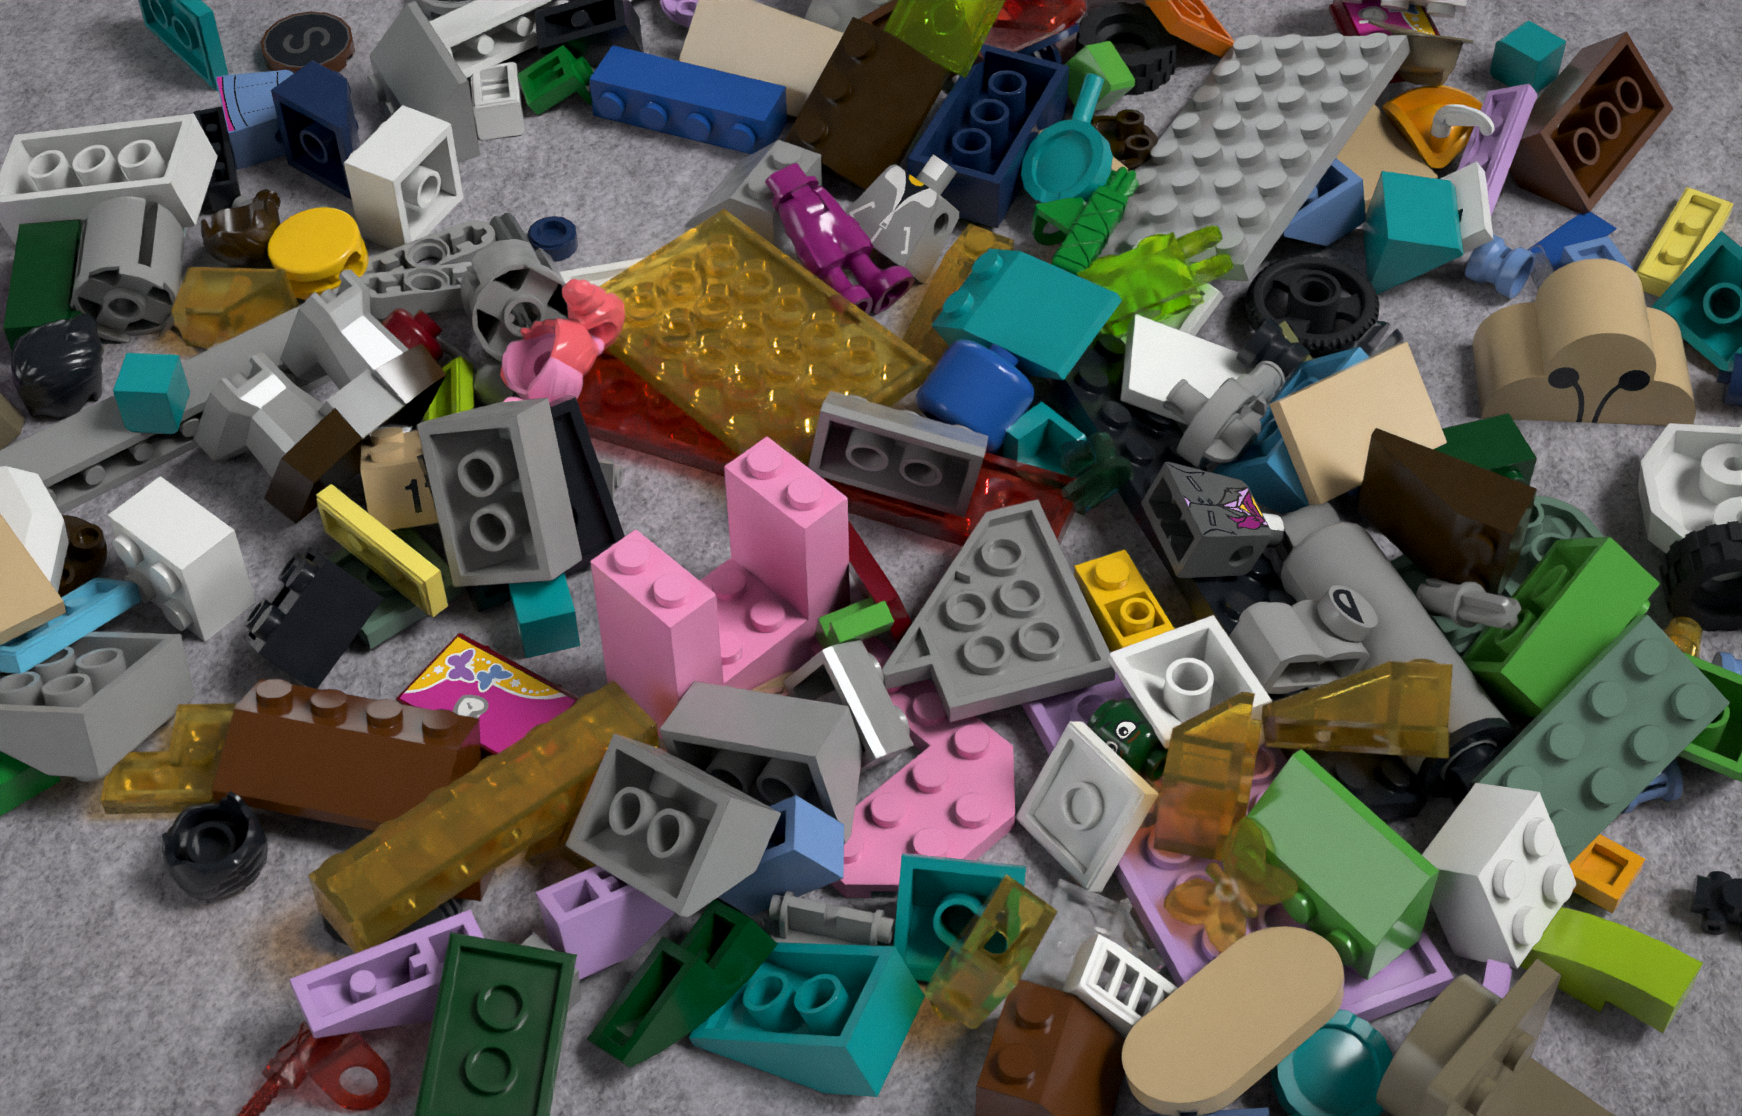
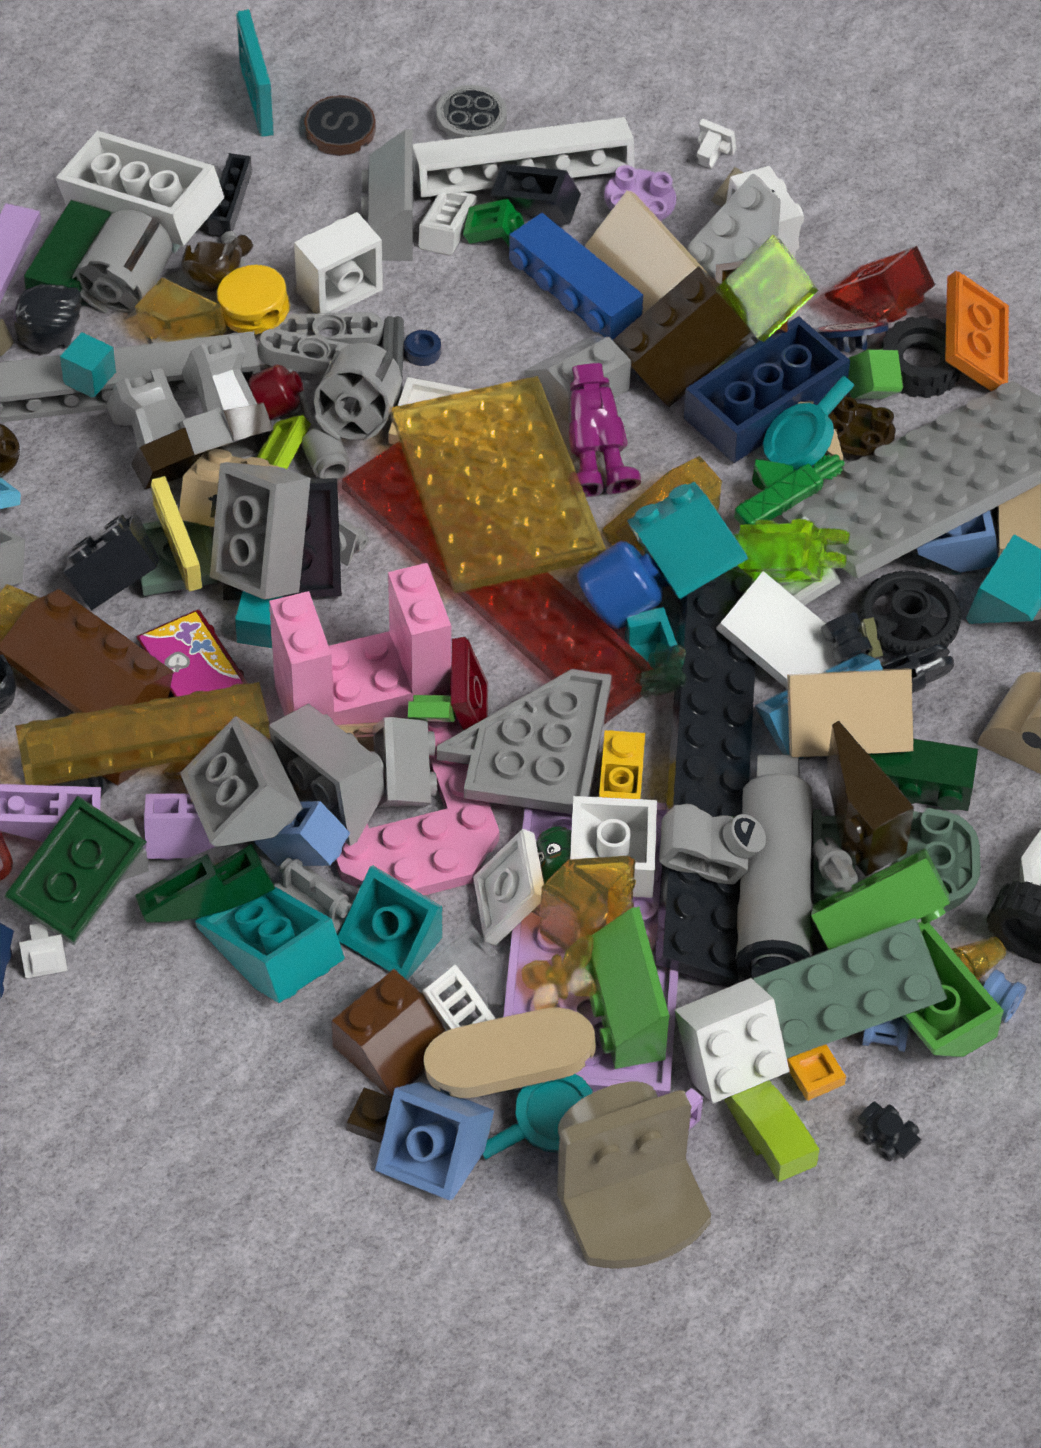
camera: 25 degrees right, 5 degrees up
(182, 559) = (52, 488): white brick -> none
(252, 115) = (280, 173): medium blue torso -> none
(317, 124) = (305, 195): dark blue slope -> none
(560, 350) = (356, 442): hair -> none
(897, 453) = (535, 602): light grey slope -> none
(908, 215) = (663, 432): light grey torso -> none
(976, 981) = (373, 950): clear yellow torso -> none
(1208, 522) = (705, 739): dark grey torso -> none
(1227, 422) = (764, 672): light grey pin -> none
(1374, 711) = (714, 904): clear yellow slope -> none

